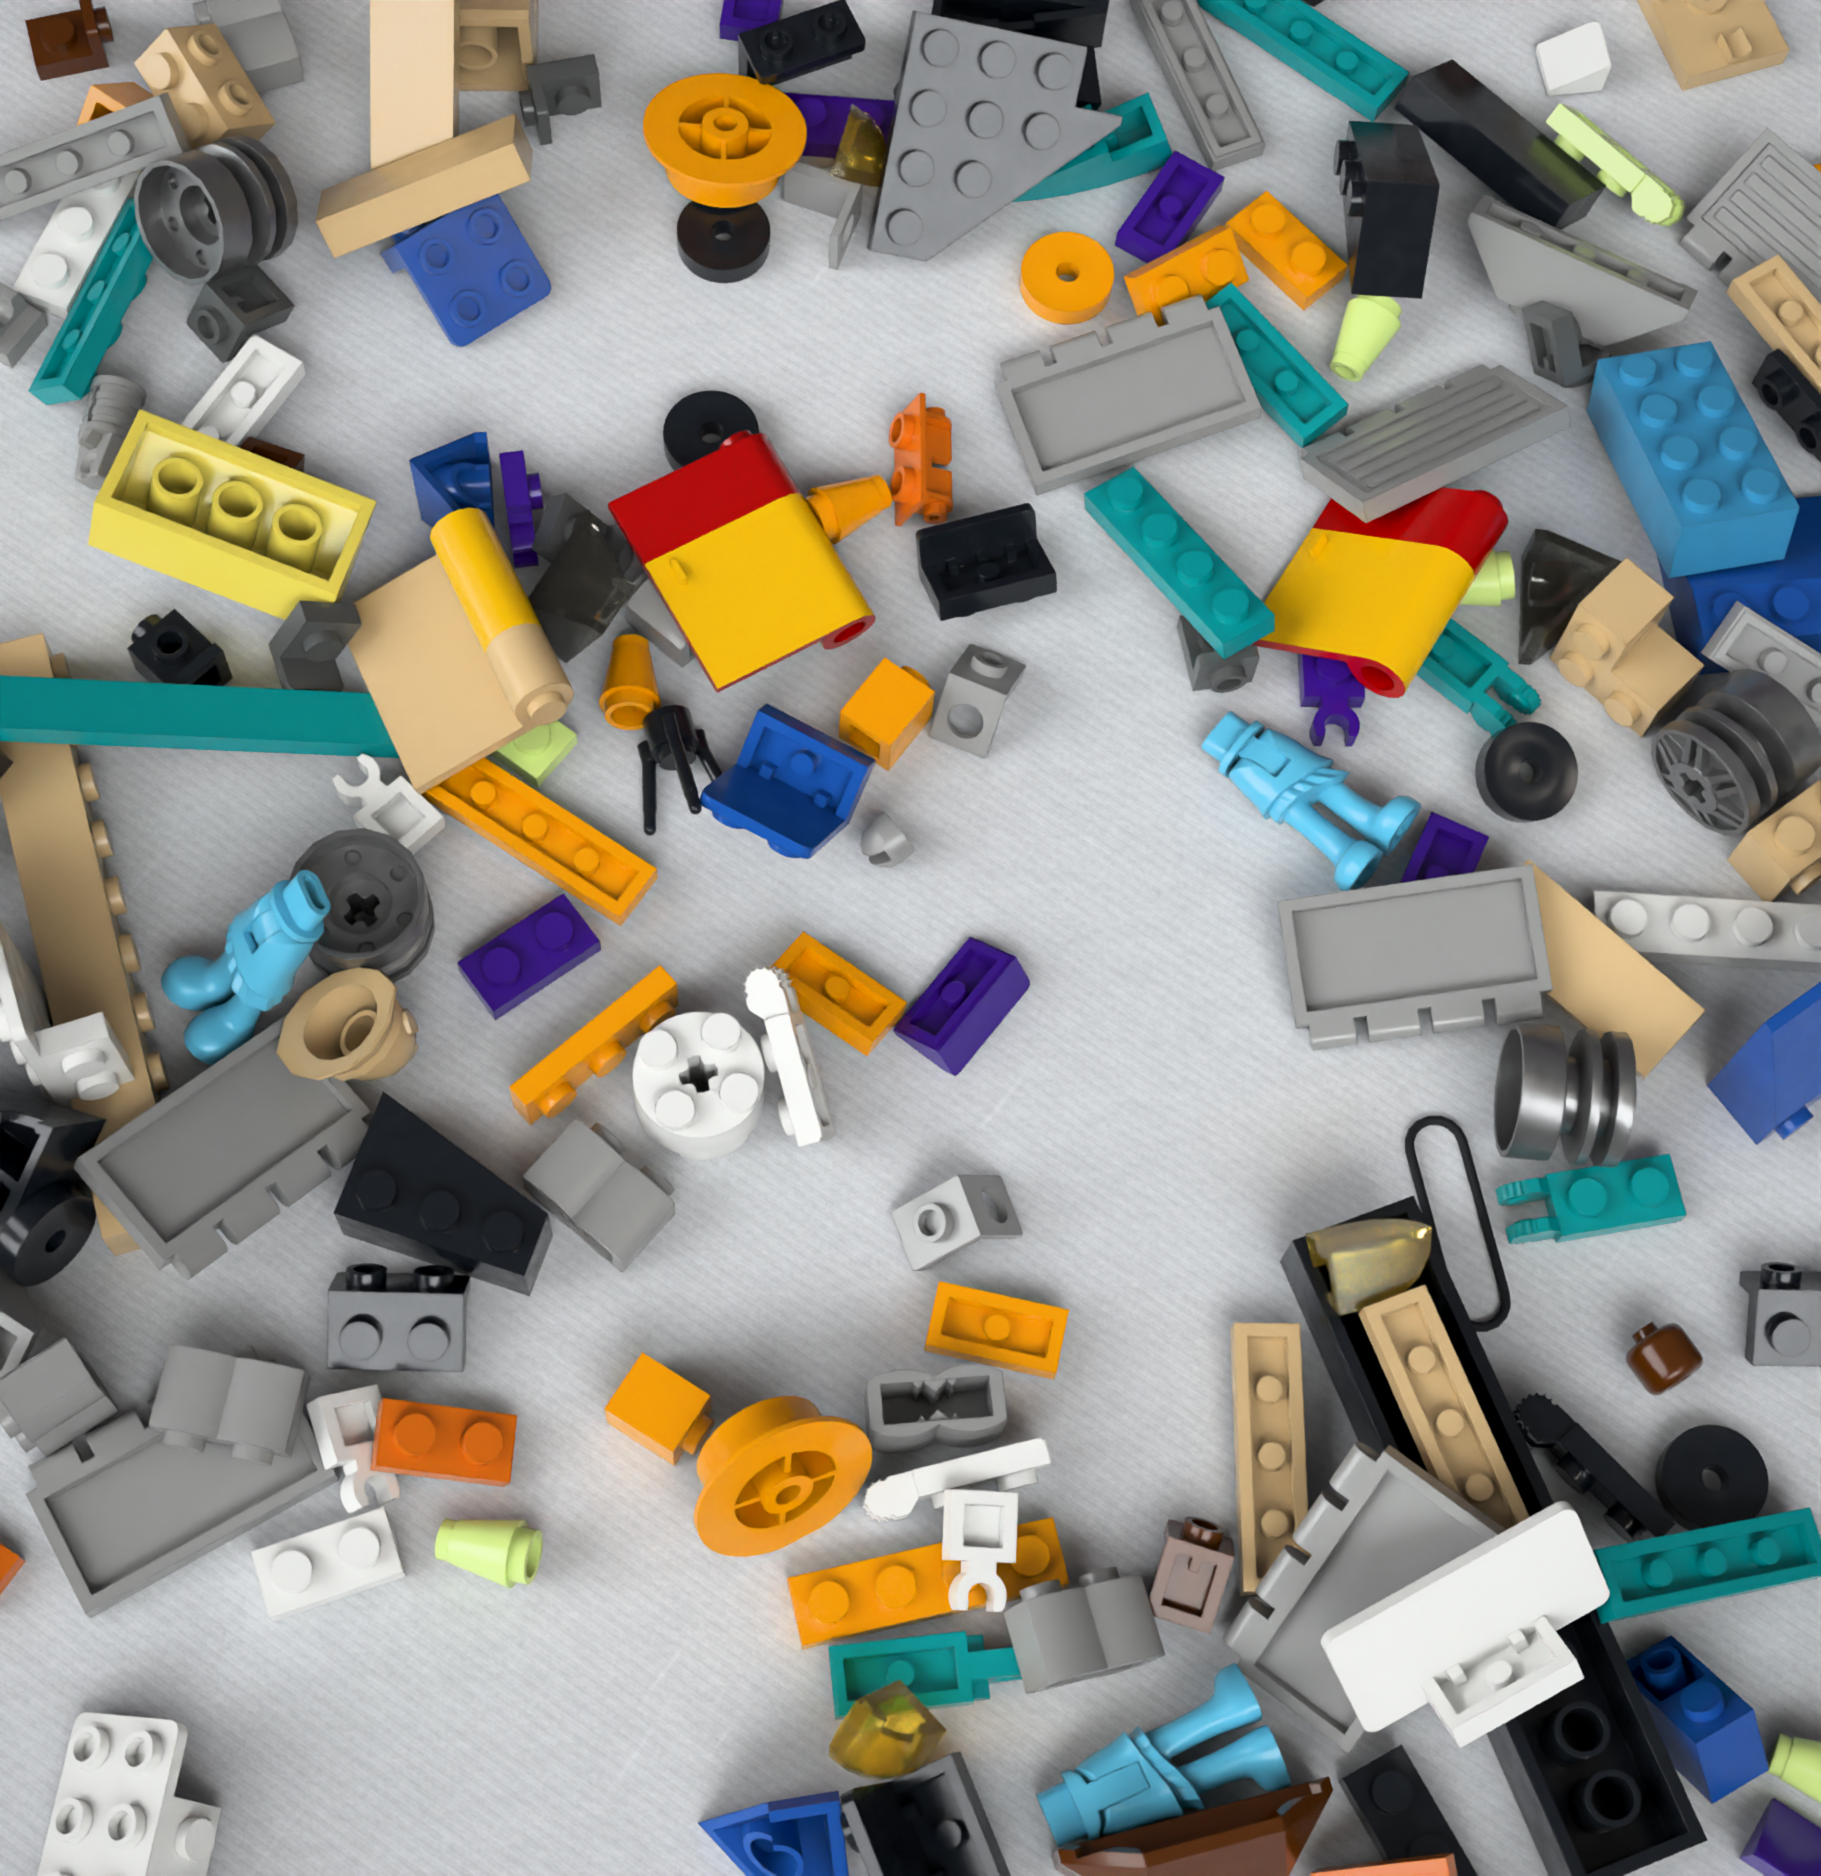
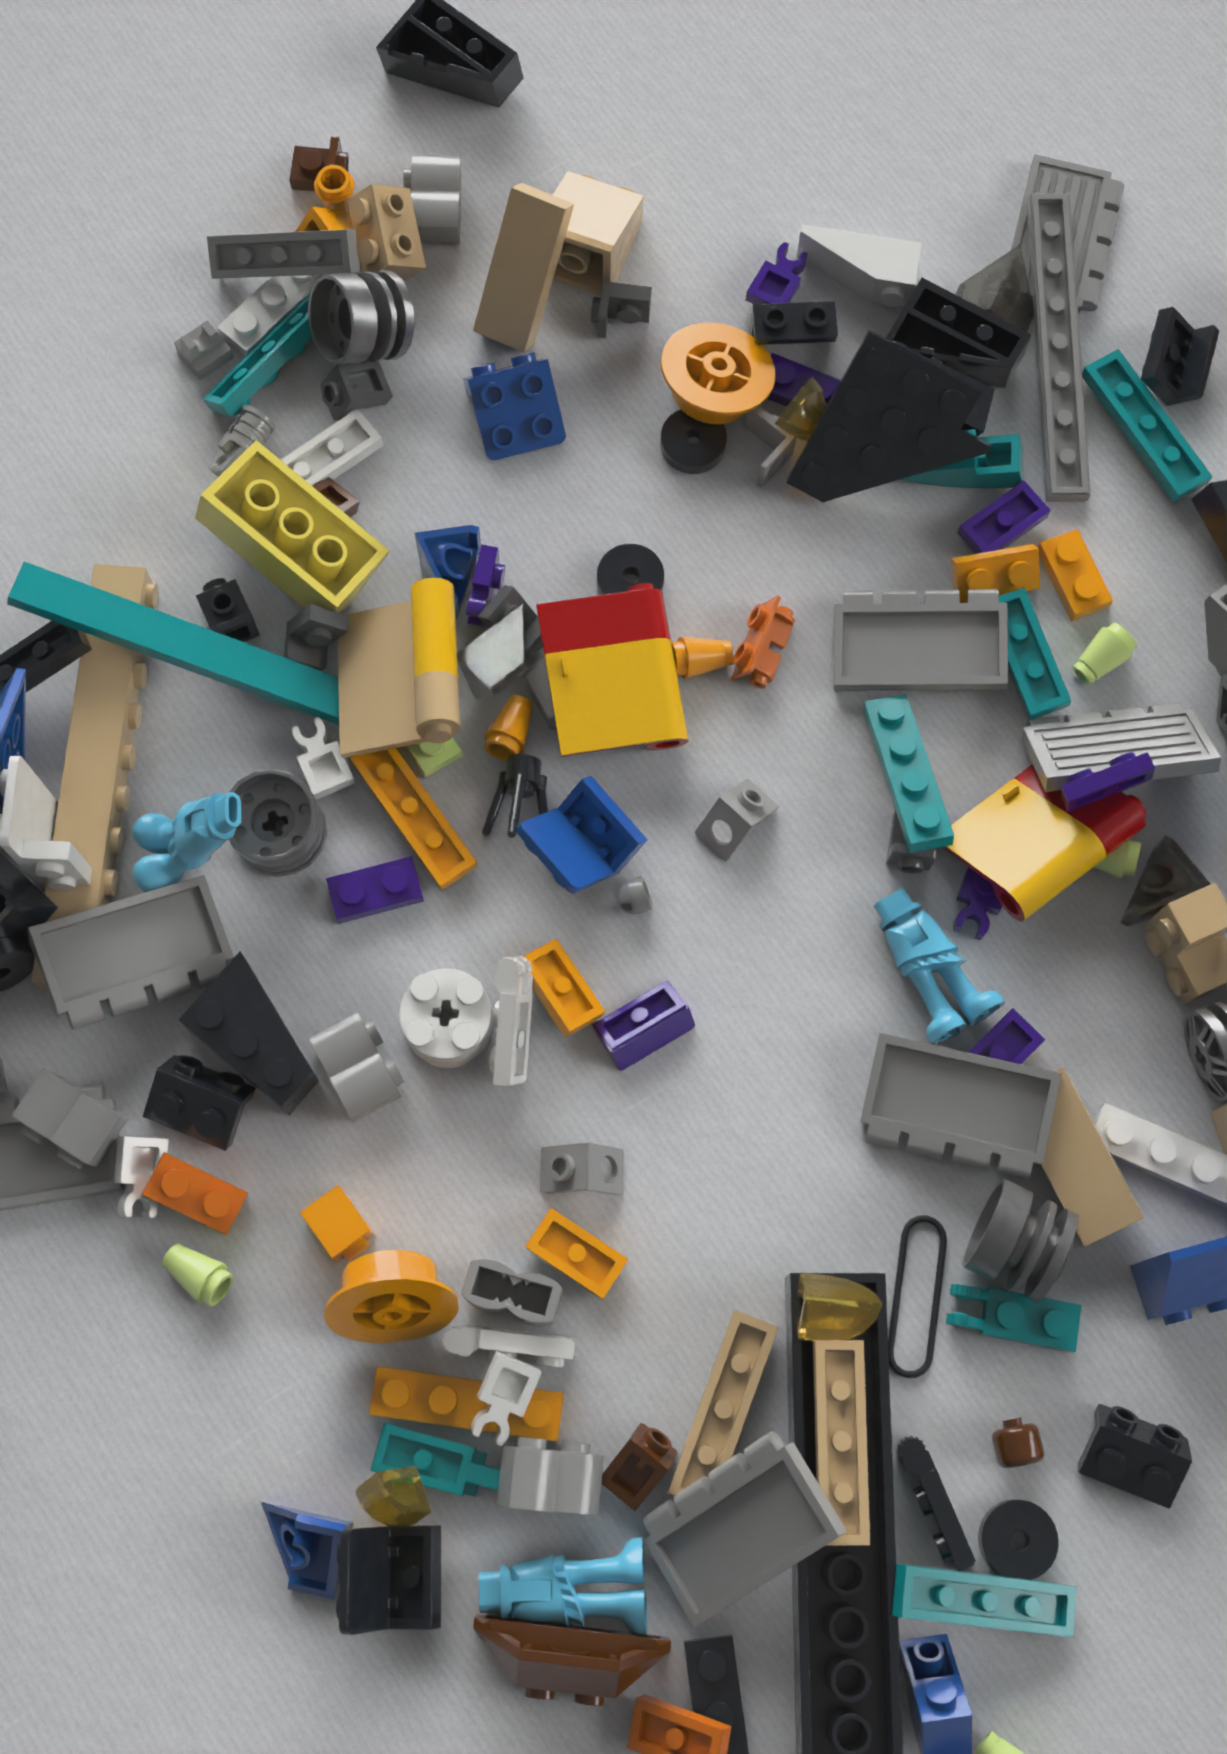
camera: 25 degrees right, 5 degrees up
(108, 54) = (334, 187): none -> light orange cone
(327, 1564) = (95, 1243): white plate -> none
(348, 1029) = (235, 901): tan piece -> none
(424, 185) = (503, 344): tan piece -> none
(595, 1047) = (391, 967): light orange plate -> none
(887, 712) = (671, 808): light orange brick -> none
(983, 562) = (776, 727): black bracket -> none
(1063, 300) = (912, 562): light orange piece -> none
(1387, 207) = (1153, 569): black wedge -> none
(1456, 465) = (1124, 773): none -> dark purple plate
(1467, 669) = (1078, 916): teal hinge -> none
(1474, 1631) = (799, 1591): white bracket -> none
(1552, 765) = (1110, 1009): black piece -> none

